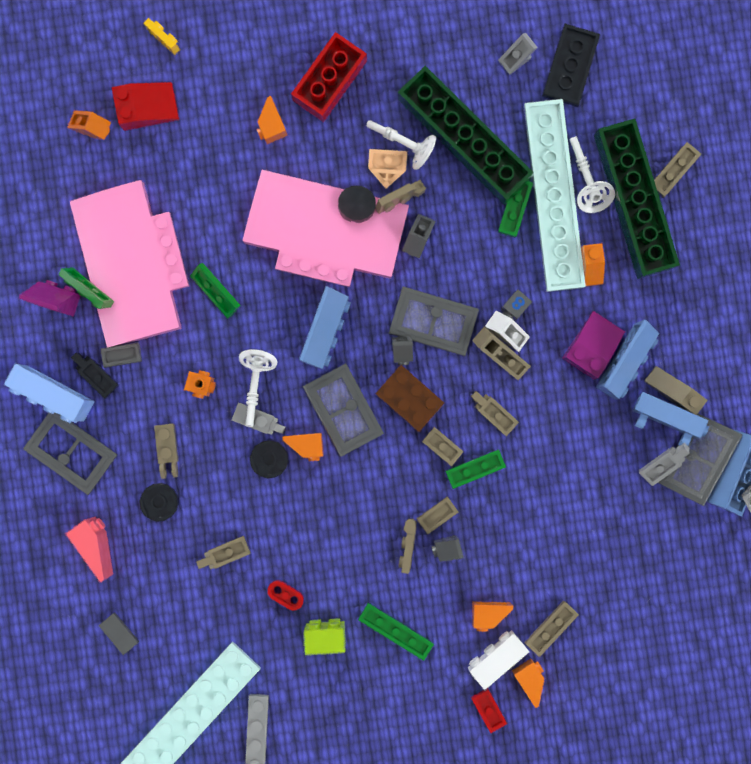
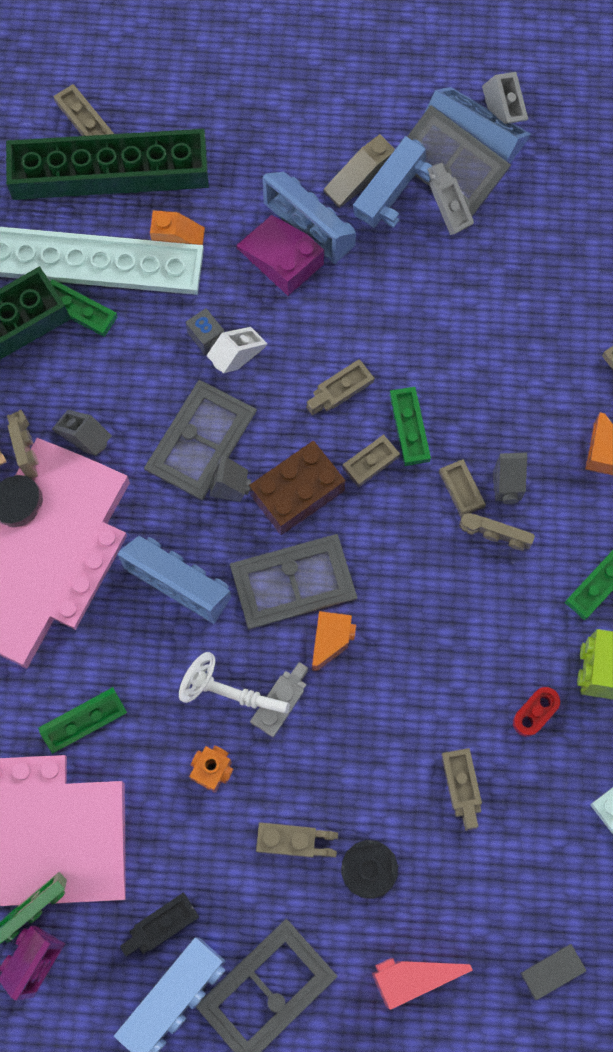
camera: 75 degrees left, 15 degrees down
(121, 355) = (141, 880): dark grey tile -> none
(269, 459) = (340, 696): black tile -> none
(501, 353) = (262, 363): dark tan slope -> none
(593, 191) = (81, 212): white dish -> none

